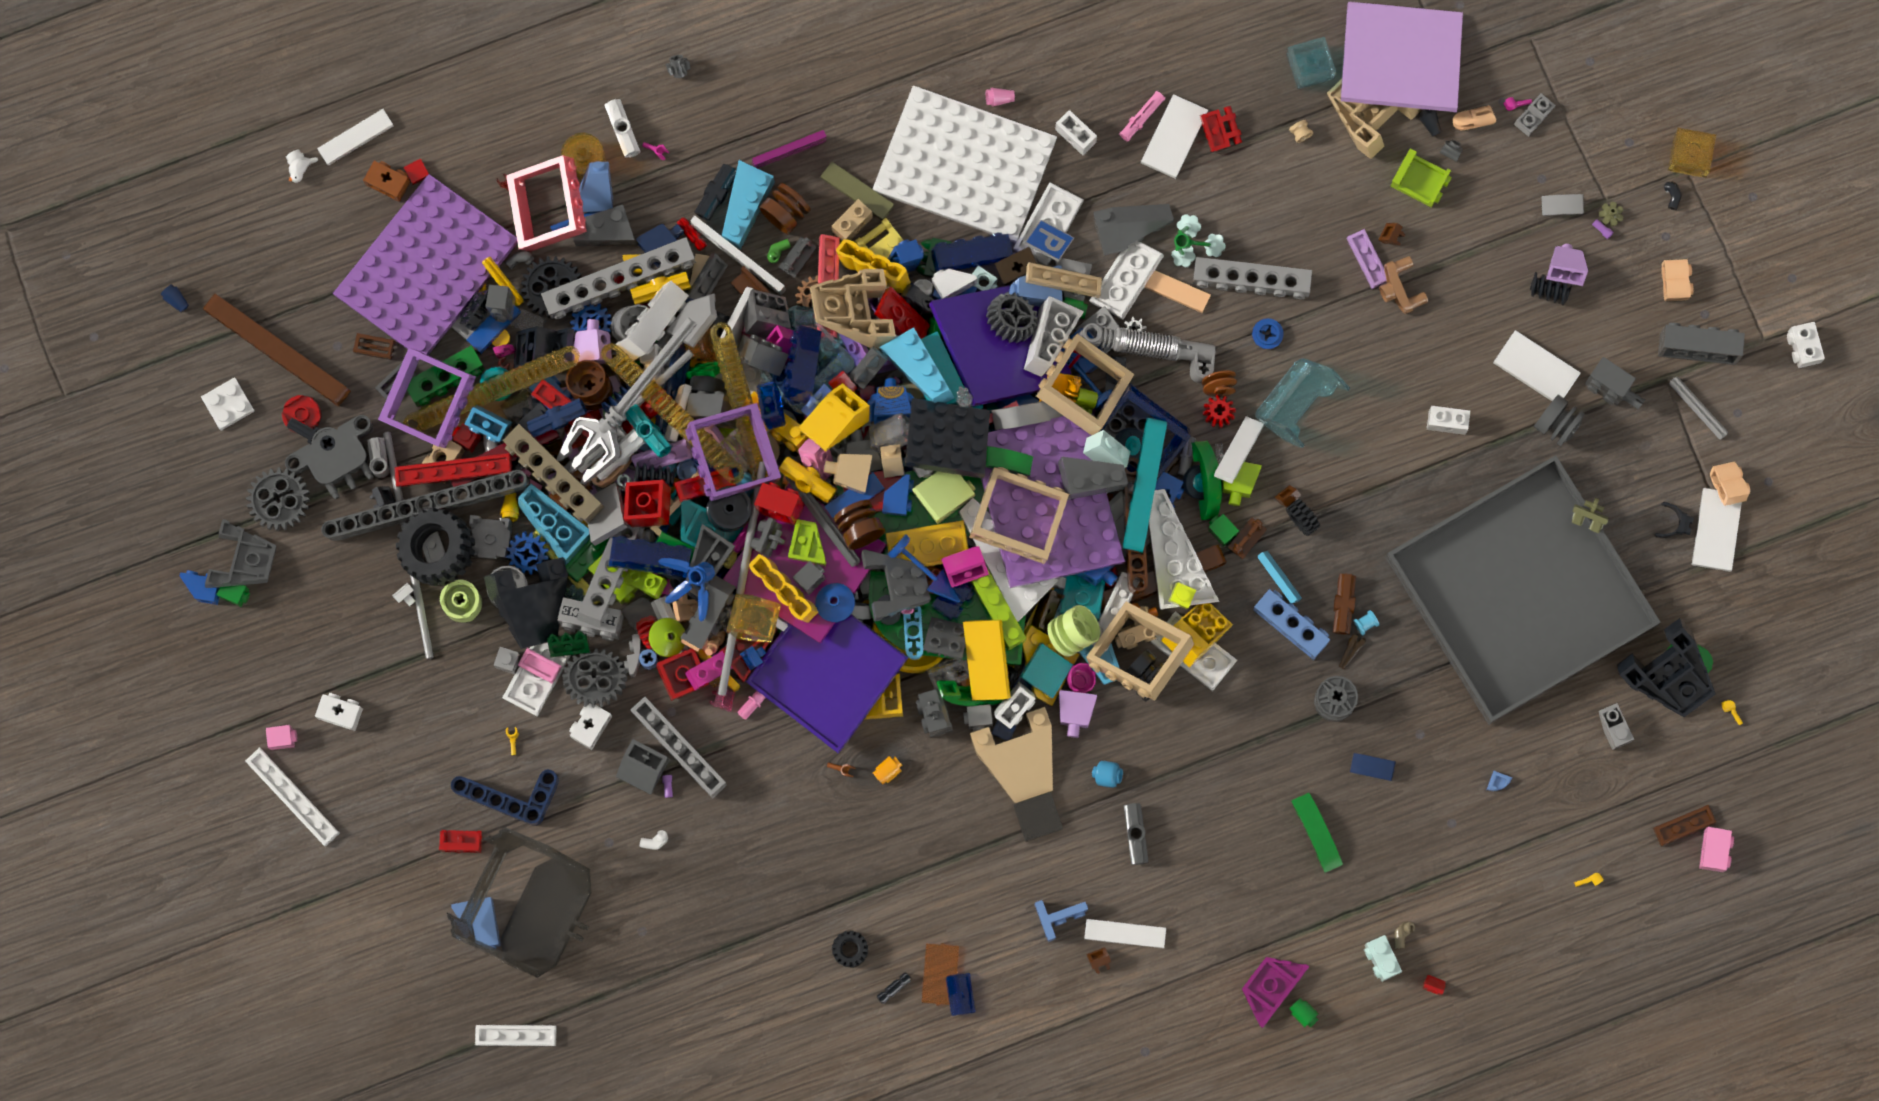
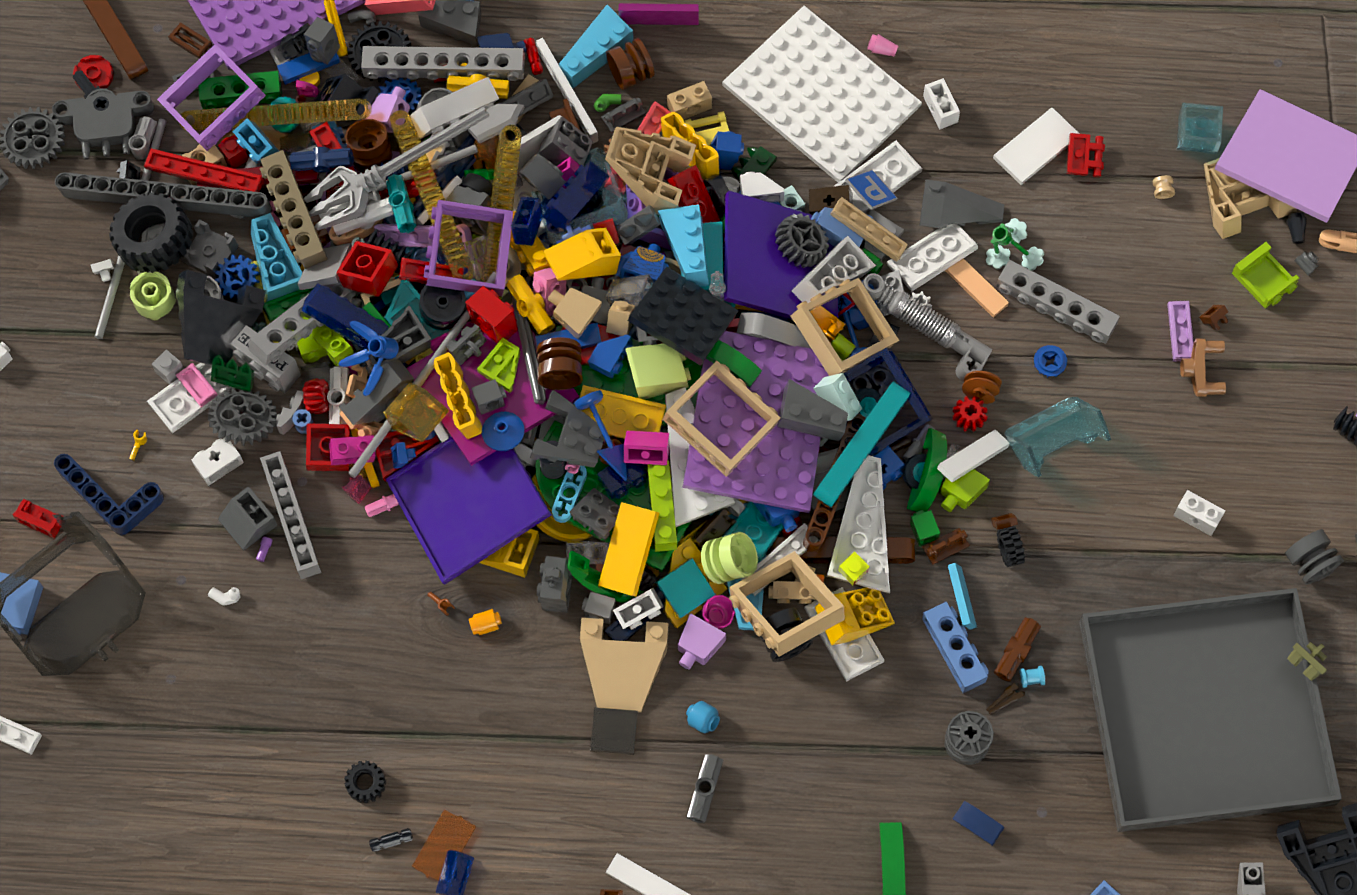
camera: 20 degrees right, 10 degrees down
(227, 404) = (31, 38): white plate -> none
(510, 507) = (242, 231): yellow cone -> none
(659, 637) = (319, 405): lime dish -> none
(716, 192) = (571, 28): black piece -> none
(857, 190) = (703, 71): olive tile -> none
(971, 253) = (791, 171): clear blue brick -> none
(1076, 911) = (589, 838): medium blue bracket -> none
(1136, 122) = (1005, 118): bright pink pin -> none
(1536, 367) = (1310, 498): white tile -> none

